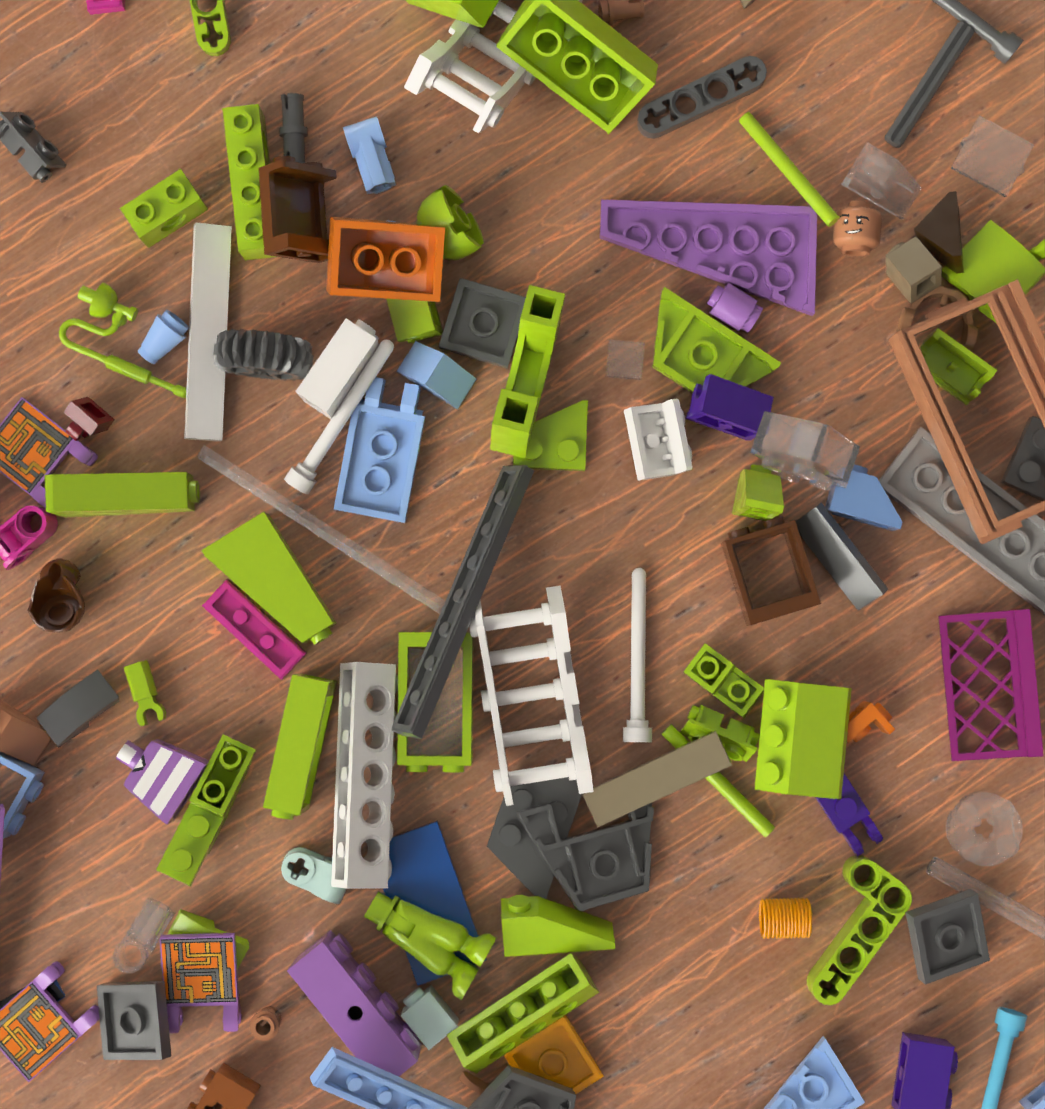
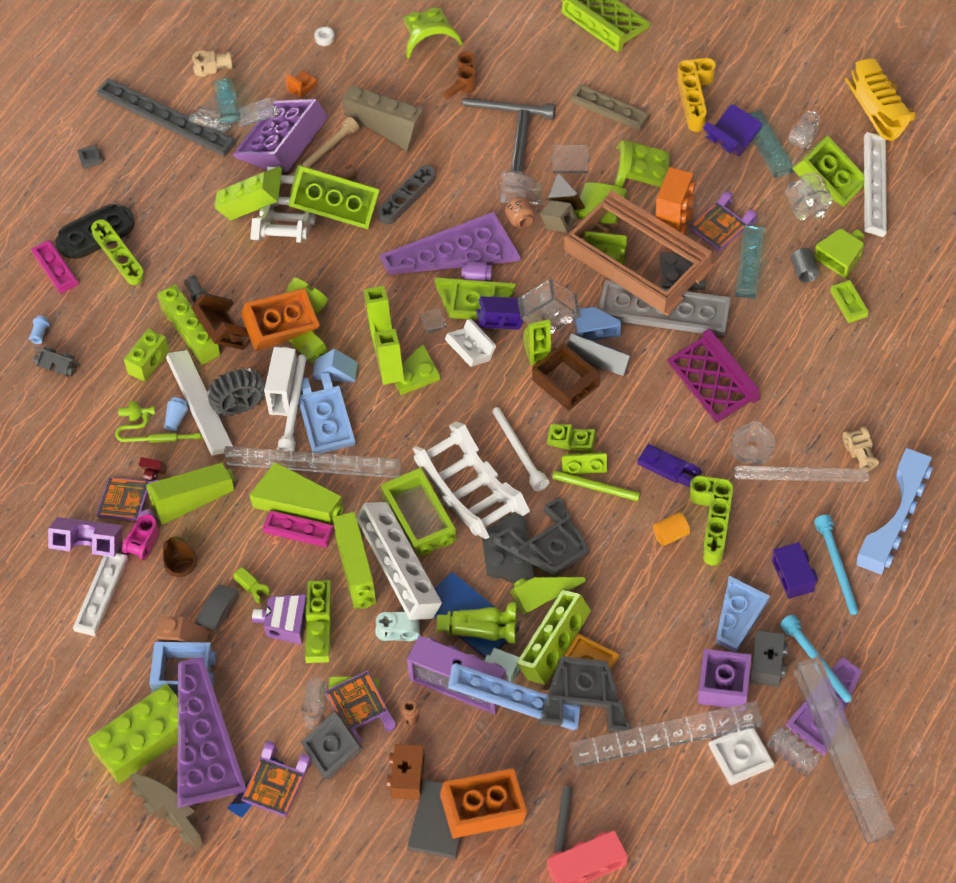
camera: 25 degrees left, 30 degrees down
(27, 71) = (40, 323): none -> light blue pin
(368, 147) = (243, 284): light blue piece -> none
(462, 601) = (407, 452): dark grey tile -> none
(483, 323) = (348, 333): dark grey plate -> none
(657, 778) = (560, 491): dark tan tile -> none
(789, 169) = (469, 203): lime bar -> none
(803, 739) = (627, 437): lime slope -> none
(865, 714) = (657, 417): orange bracket -> none
(947, 936) = (763, 495): dark grey plate -> none

